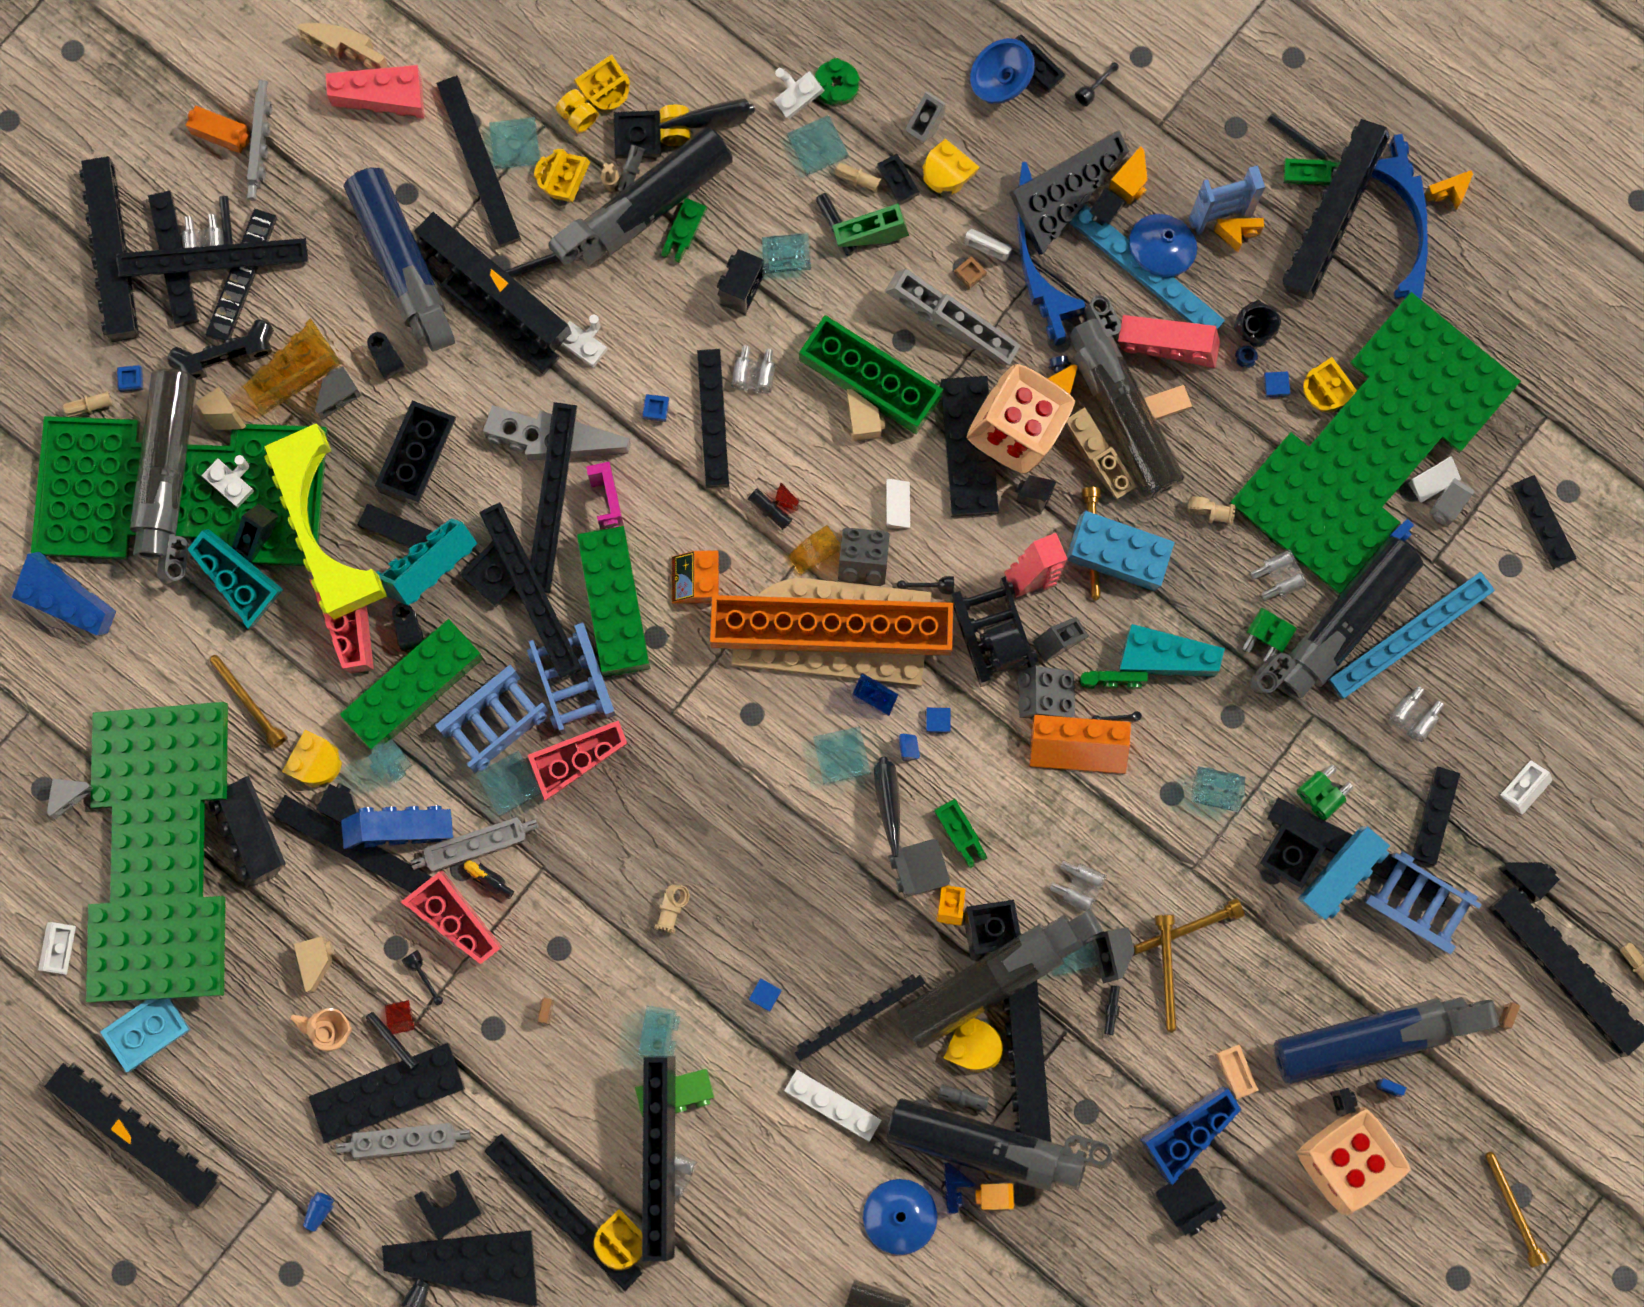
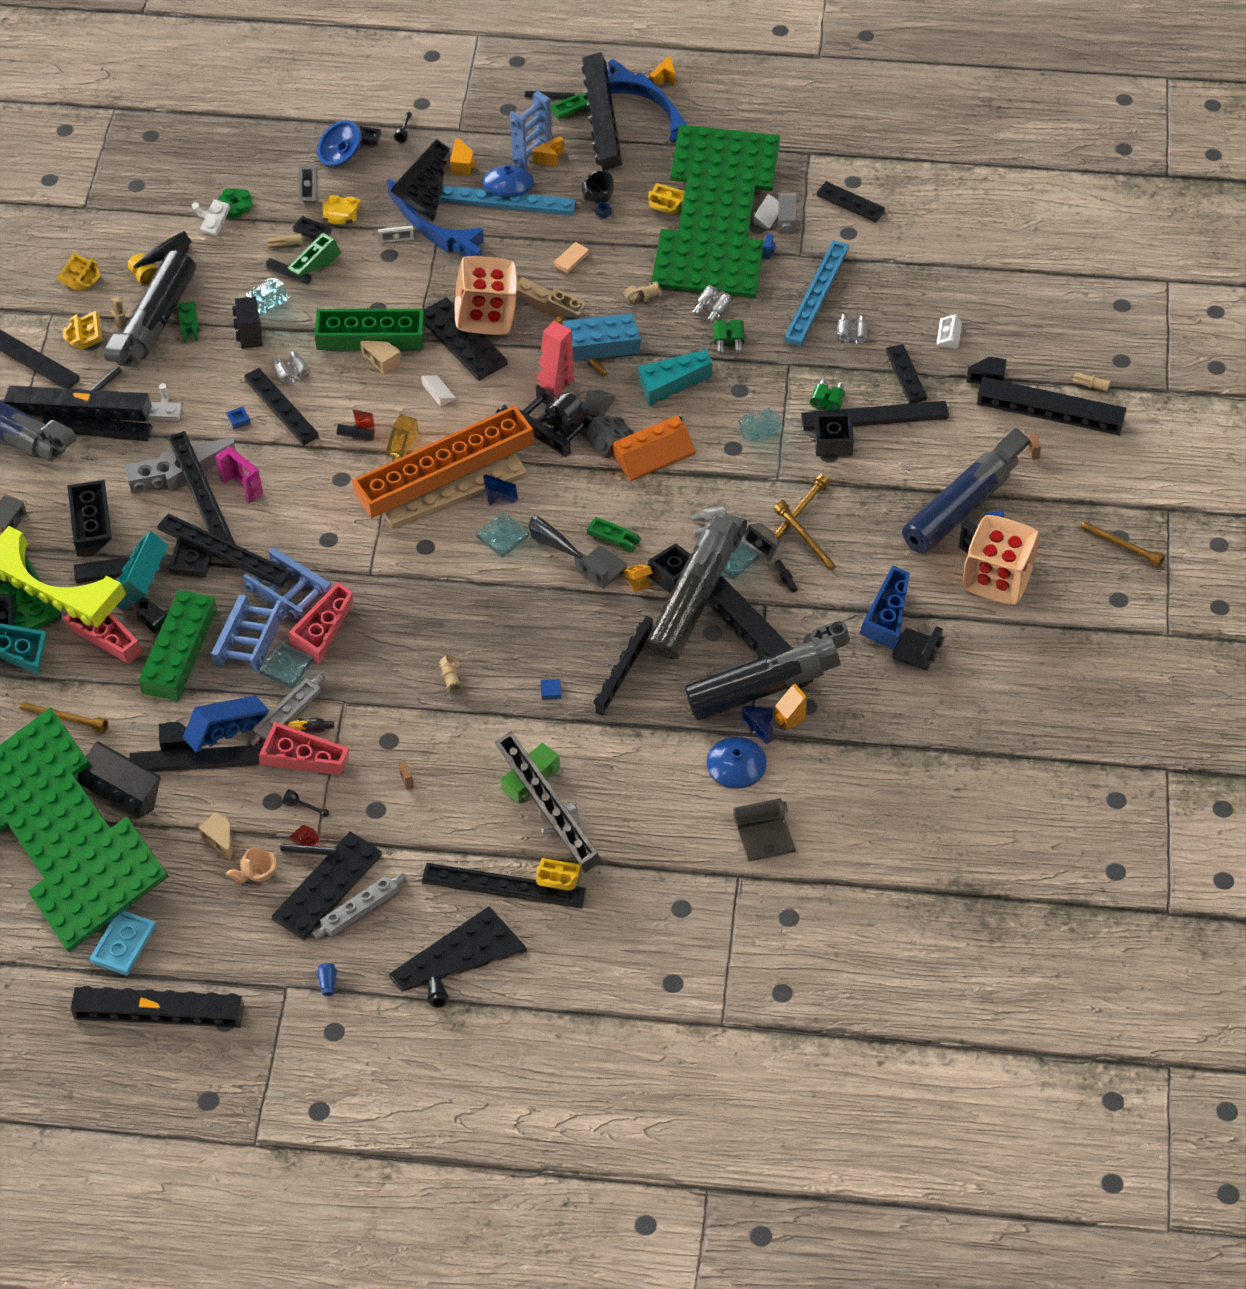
camera: 30 degrees left, 25 degrees down
(56, 948) = (20, 931): white slope -> none
(313, 761) = (136, 723): yellow slope -> none
(386, 357) = (28, 479): black piece -> none
(389, 761) = (193, 688): clear light blue brick -> none
(455, 1216) = (427, 926): black piece -> none
(514, 142) = (39, 331): clear light blue plate -> none
(574, 107) = (71, 292): yellow wheel -> none
(613, 601) = (285, 528): green brick -> none
(631, 167) = (129, 302): dark grey pin -> none
(638, 129) = (122, 285): black plate -> none
(653, 1032) = (486, 737): clear light blue brick -> none
(695, 577) = (332, 490): slope -> none
(817, 145) = (246, 239): clear light blue plate -> none
(832, 1105) = (643, 725): white plate -> none
(863, 556) = (437, 424): dark grey bracket -> none
(908, 747) = (542, 509): blue slope -> none
(938, 720) = (552, 485): blue tile -> none
(951, 317) = (399, 275): light grey brick -> none
(970, 272) = (395, 254): medium nougat tile -> none
(975, 1046) = (712, 640): yellow slope -> none
(1035, 492) = (524, 335): black slope -> none
(1107, 207) = (458, 173): black slope -> none
(1112, 679) = (648, 405): green hinge -> none
(1122, 401) = (546, 264): clear smoke piece -> none
(1170, 340) = (550, 221): coral wedge -> none
(1237, 1072) = (884, 562): light nougat tile -> none
(1276, 384) = (633, 215): blue tile -> none
(1343, 622) = (769, 304): black piece -> none
(1344, 872) = (874, 421): dark azure brick -> none
(1422, 926) = (934, 432): medium blue fence -> none

